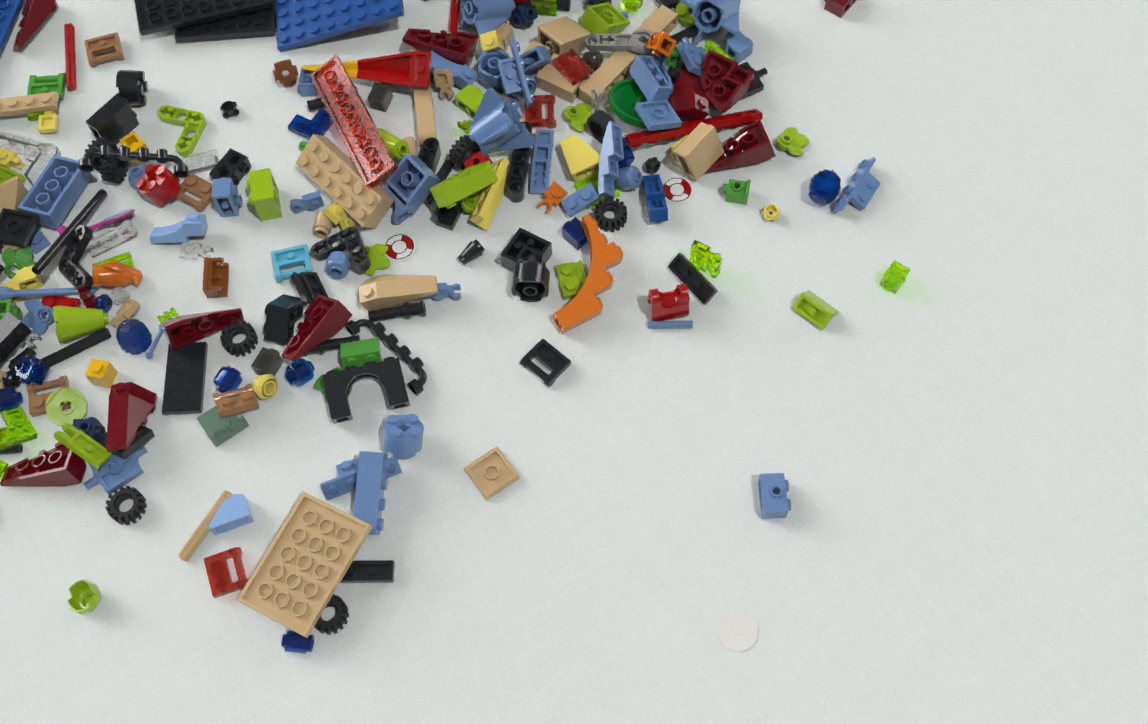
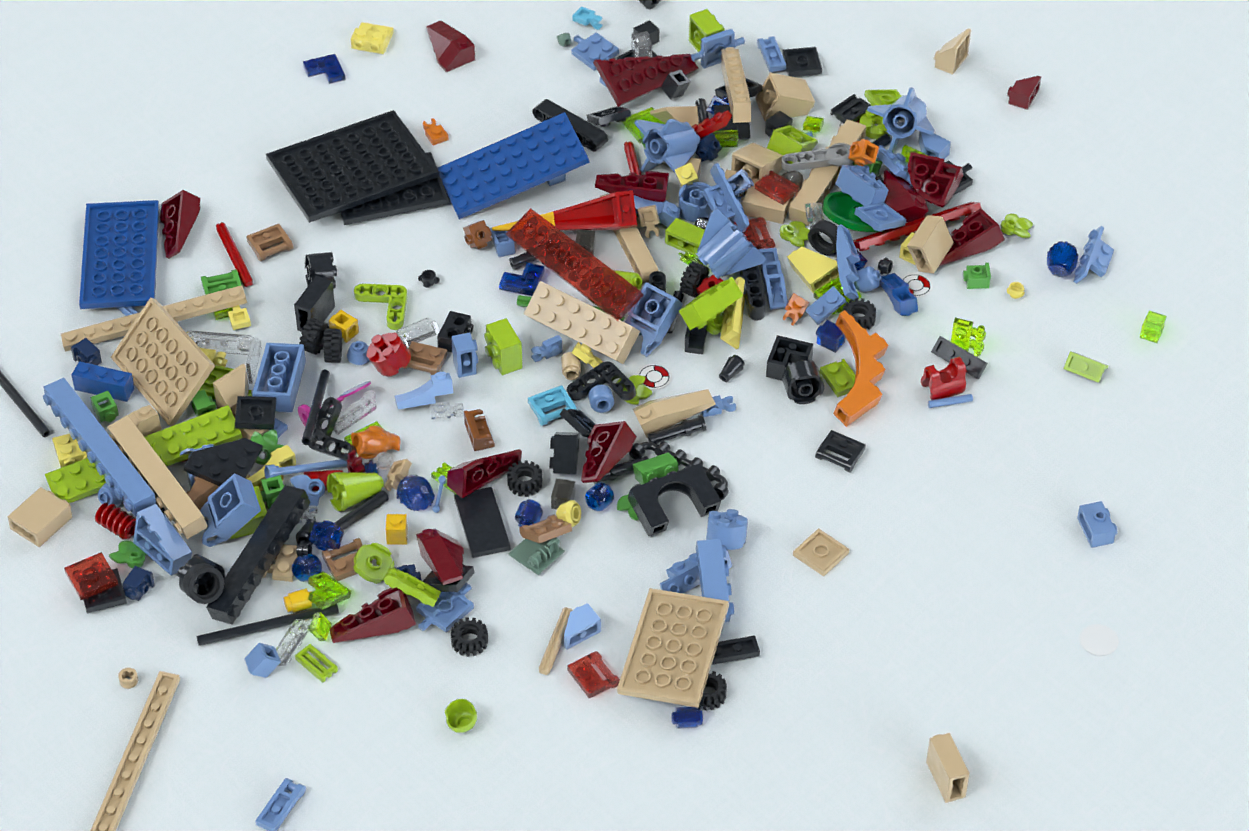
camera: 15 degrees left, 15 degrees down
(86, 164) = (318, 339): black bar -> none

